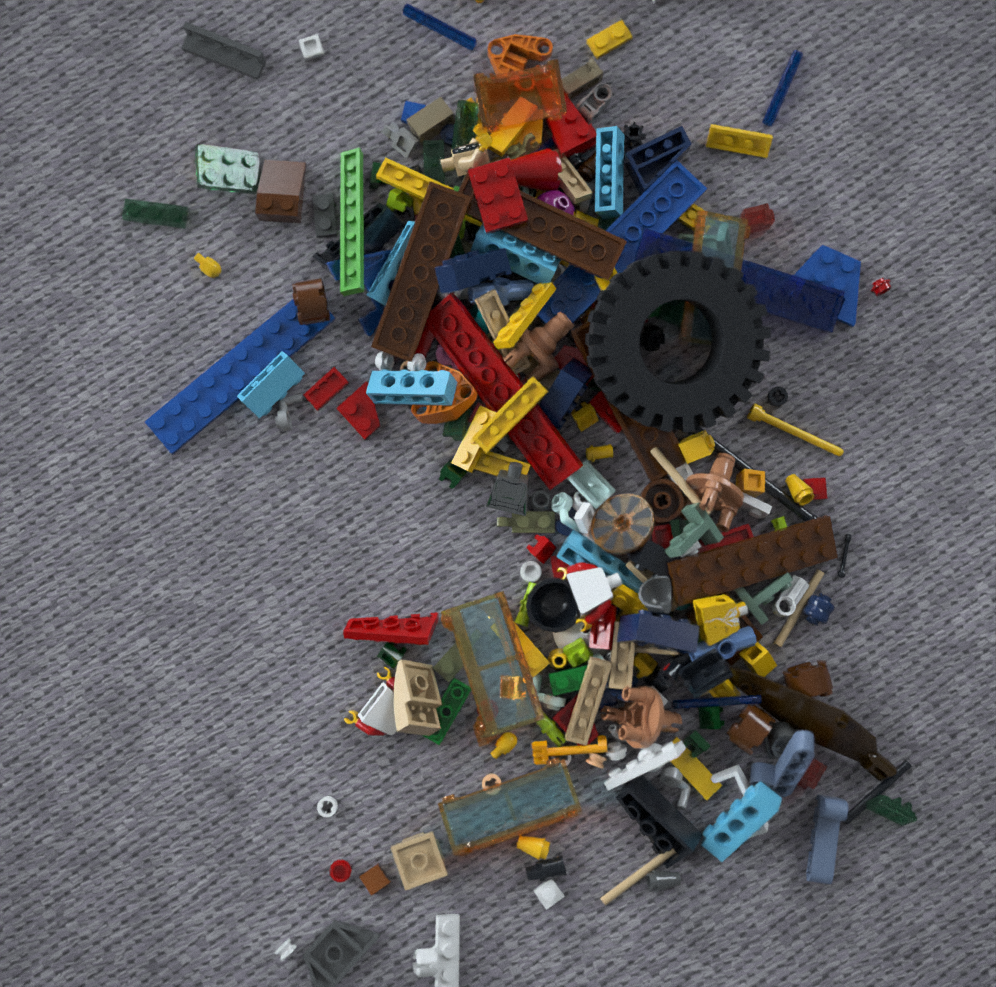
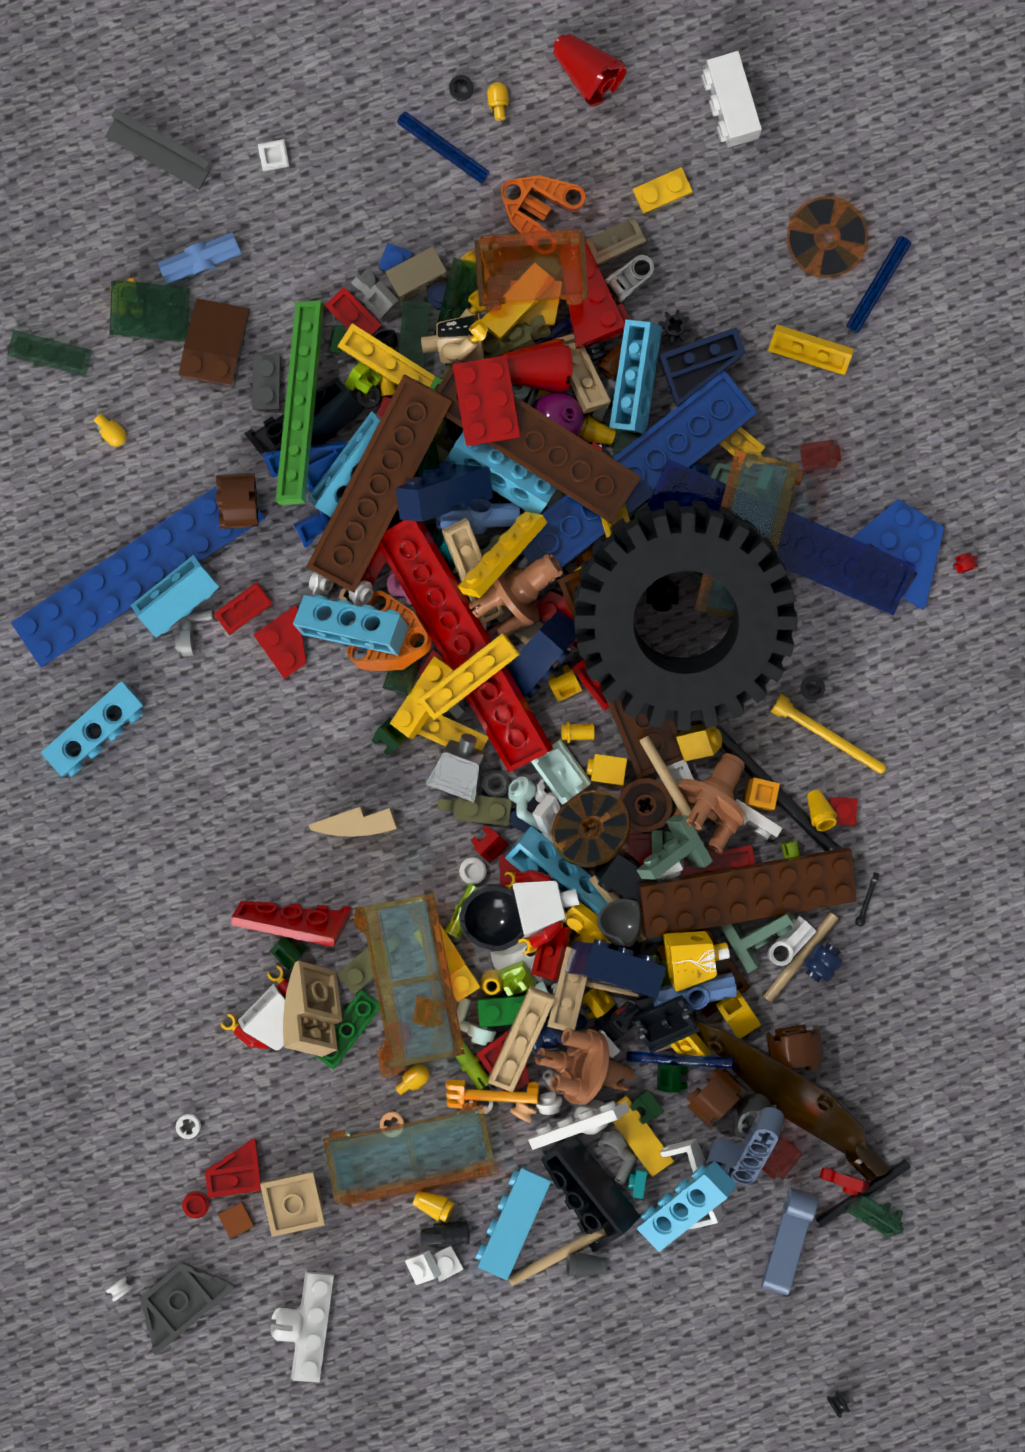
camera: 10 degrees right, 5 degrees up
(191, 518) = (57, 751): none -> medium azure brick
(263, 128) = (199, 258): none -> medium blue piece
(370, 840) = (235, 1173): none -> red wing
(378, 150) = (349, 310): none -> red plate
(434, 544) = (357, 823): none -> tan slope
(531, 899) = (422, 1267): none -> white plate
(600, 853) = (513, 1223): none -> medium azure brick
(626, 478) = (607, 769): none -> yellow brick
(696, 806) = (637, 1182): none -> teal plate
(738, 73) = (820, 257): none -> clear orange piece
(868, 786) = (850, 1183): none -> red plate
(884, 970) = (838, 1404): none -> black bush

